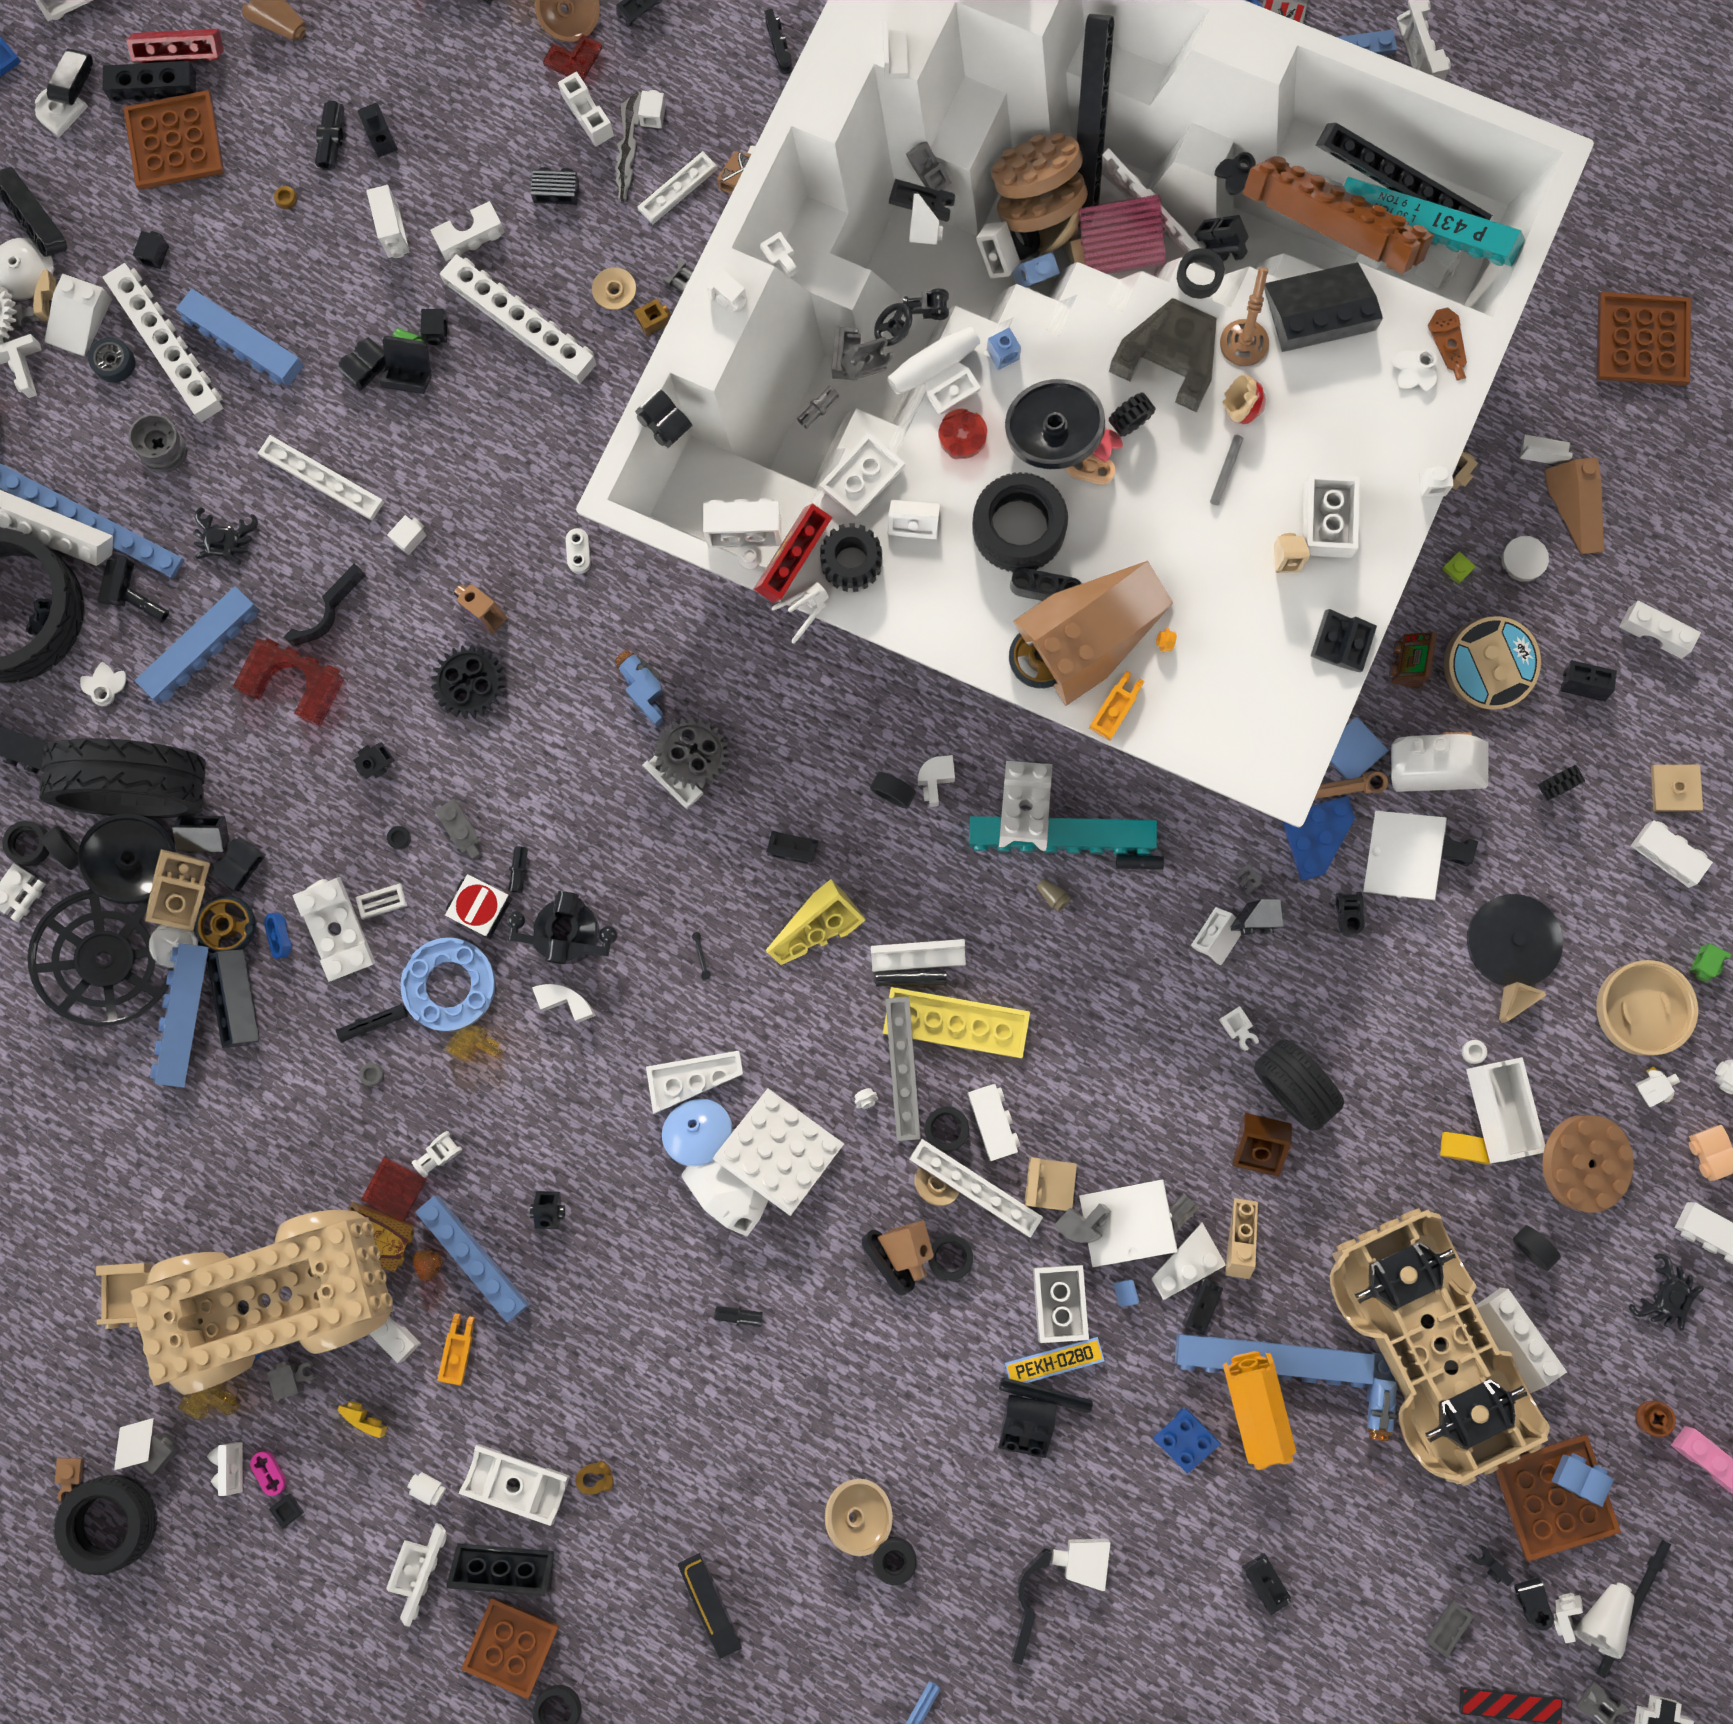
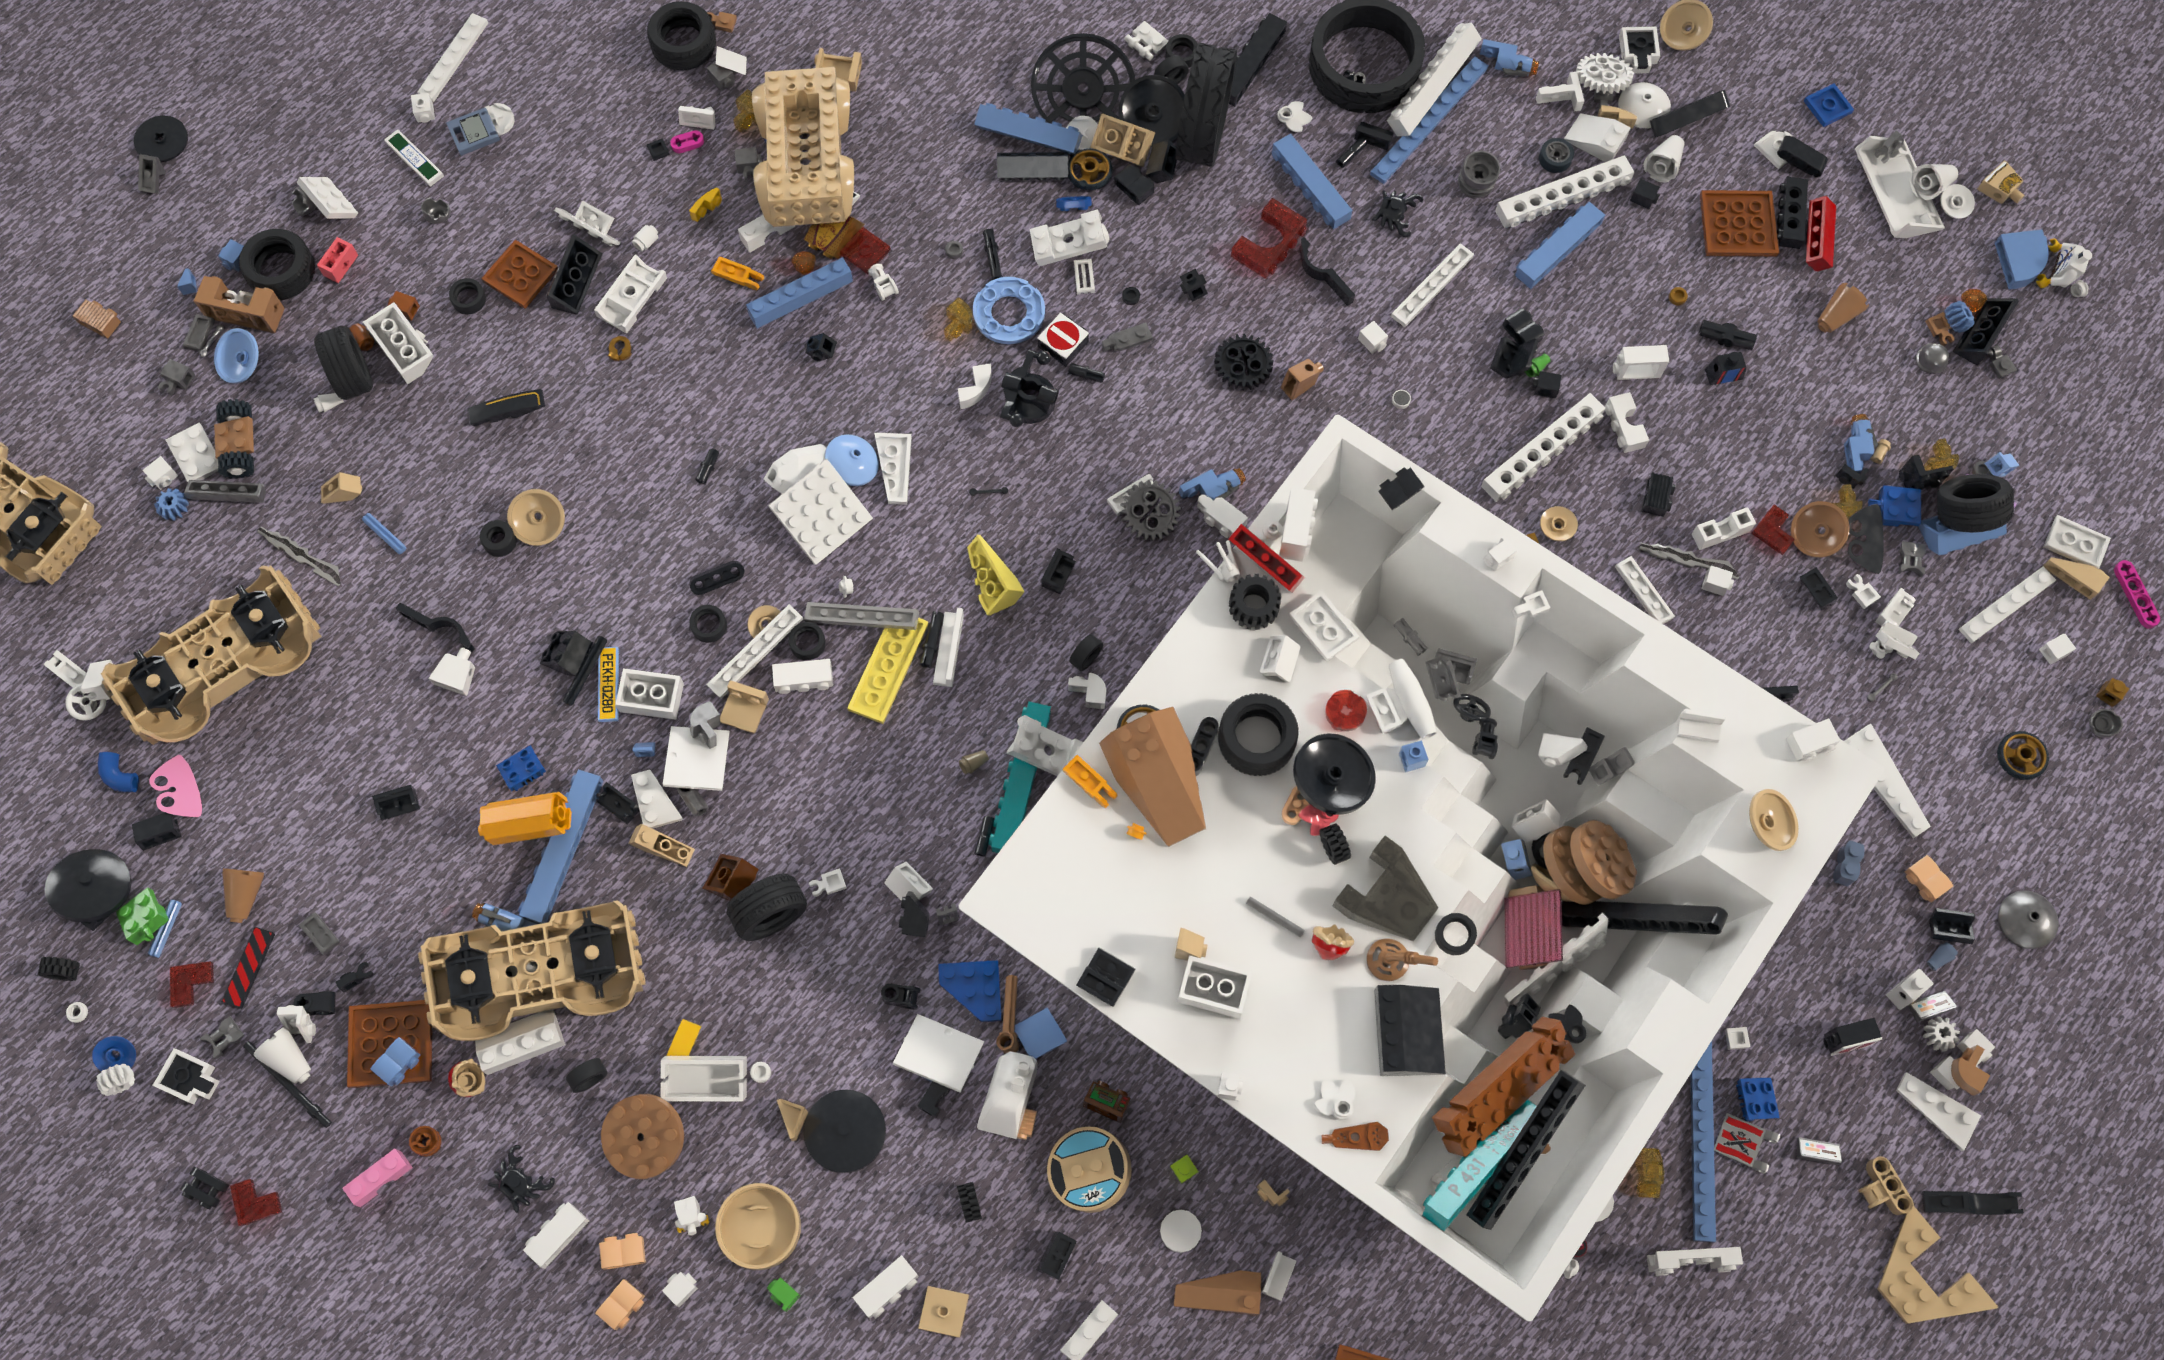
camera: 95 degrees right, 10 degrees down
(98, 229) = (1665, 160): none -> white cone
(483, 490) = (1401, 399): none -> tile
(680, 668) = (1221, 515): none -> white hinge
(908, 1248) = (722, 591): medium nougat torso -> none
(1577, 1389) = (466, 1078): none -> tan hair

